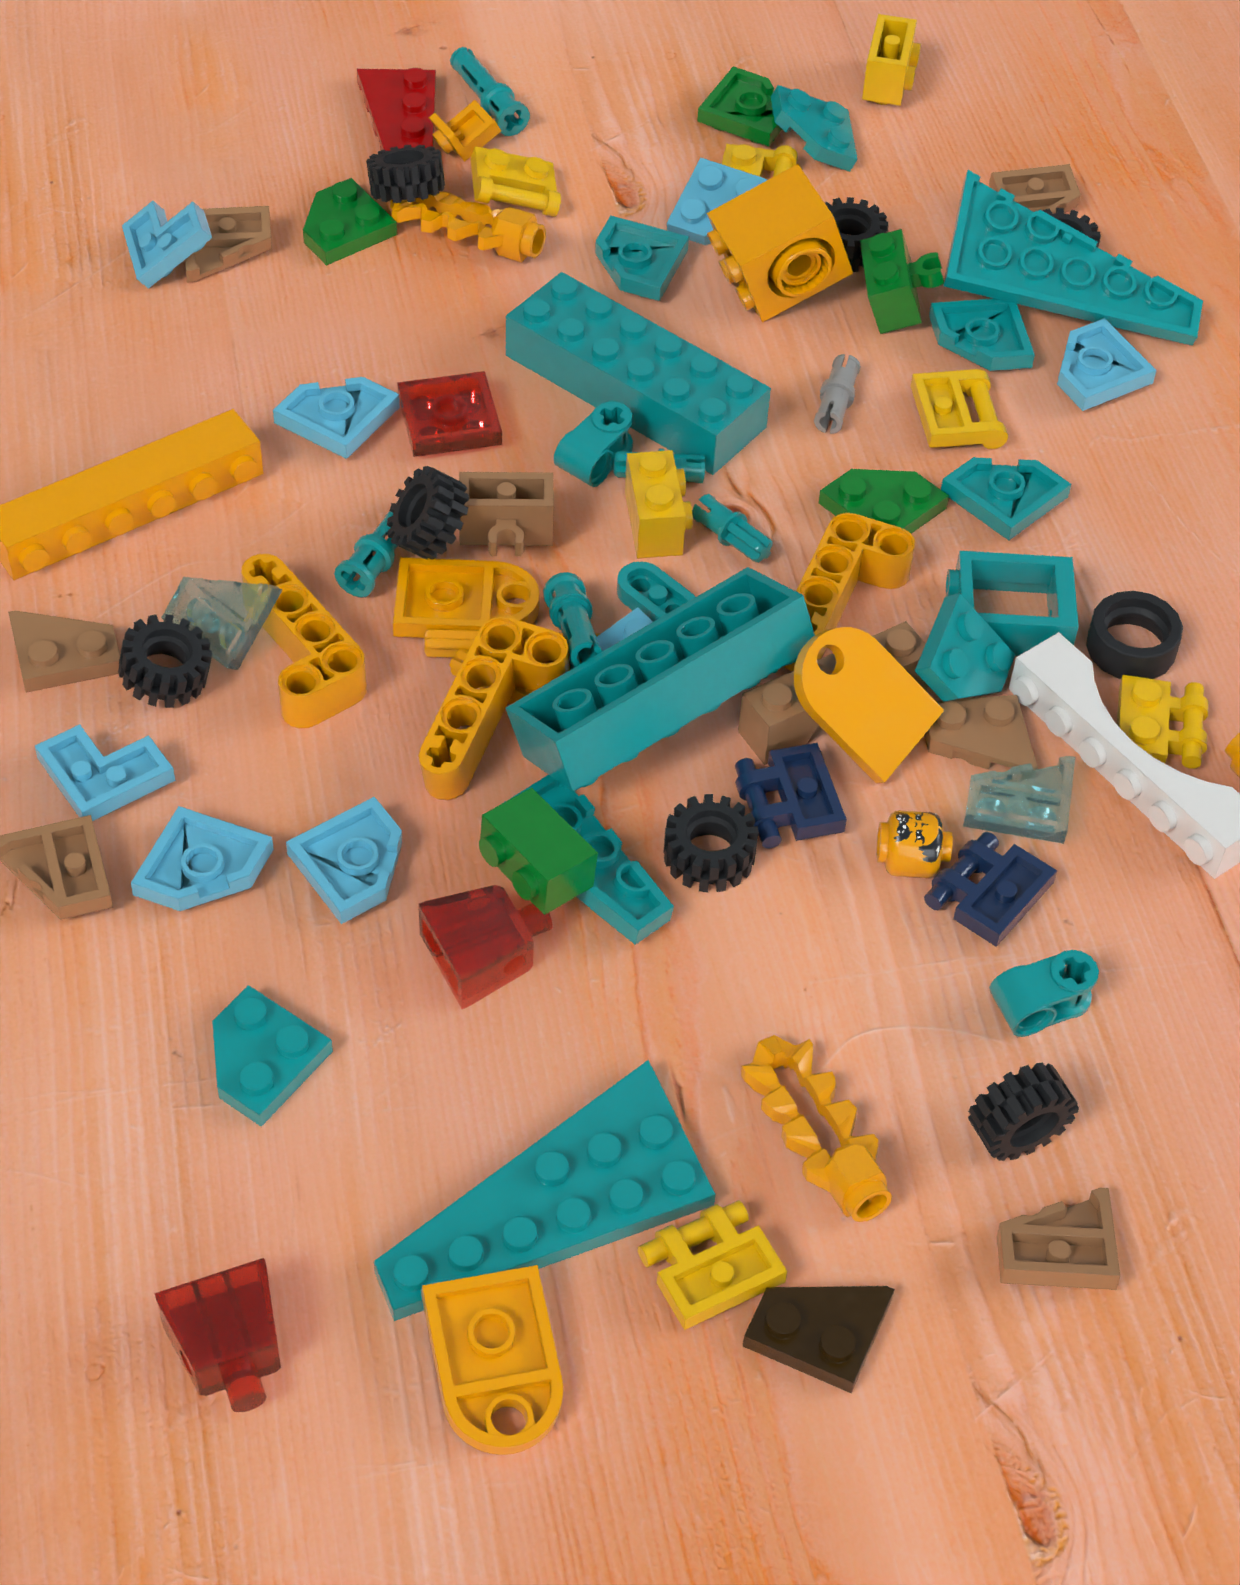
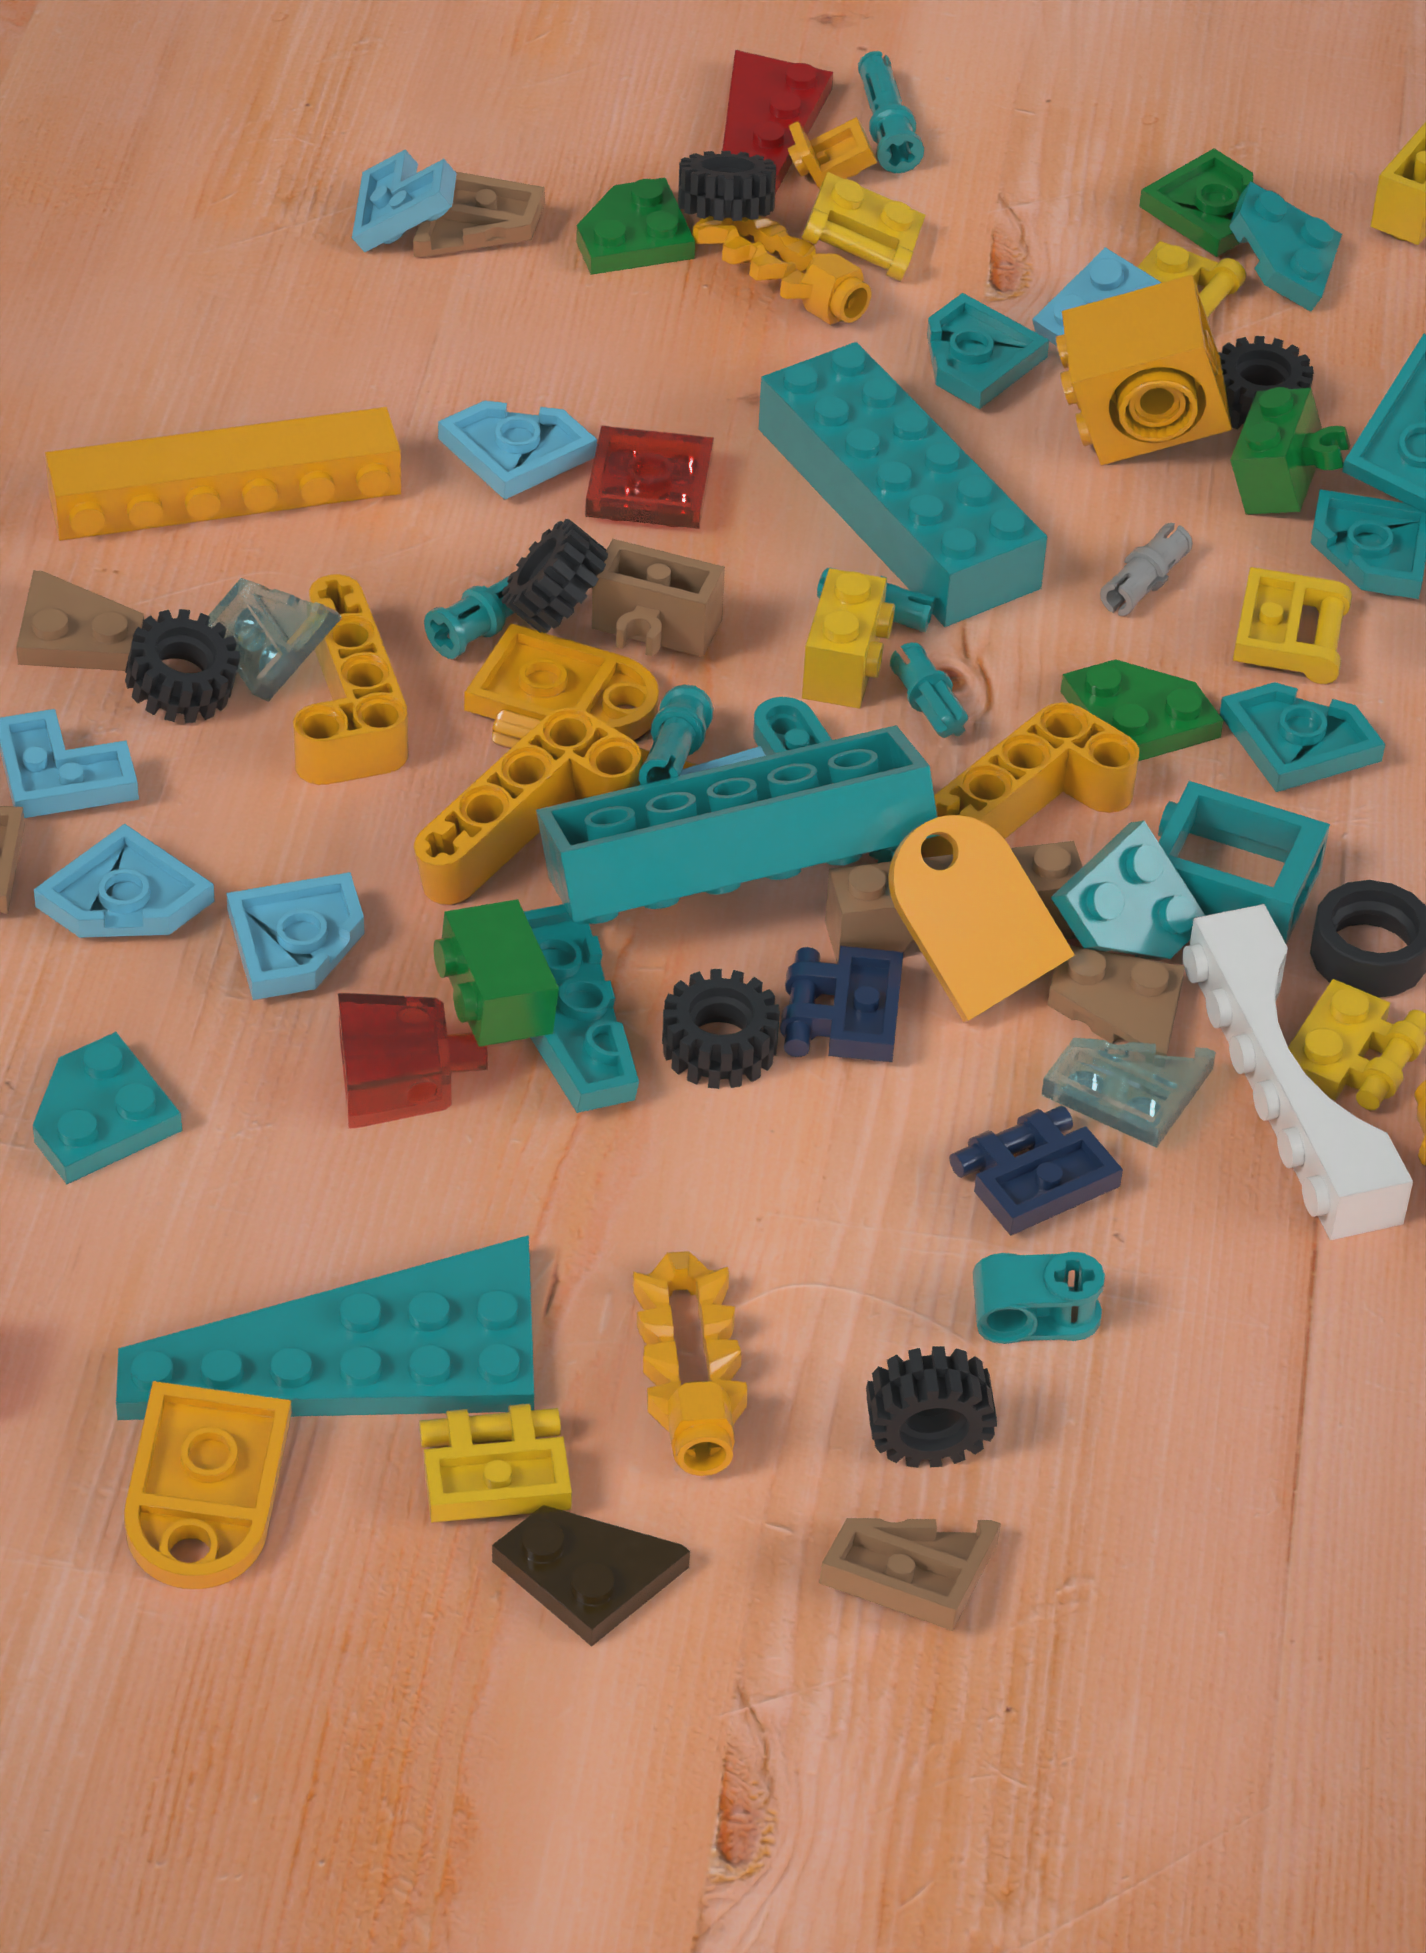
camera: 20 degrees right, 5 degrees down
(592, 445) = (799, 553): teal piece -> none
(913, 844) = (963, 1094): light orange head -> none

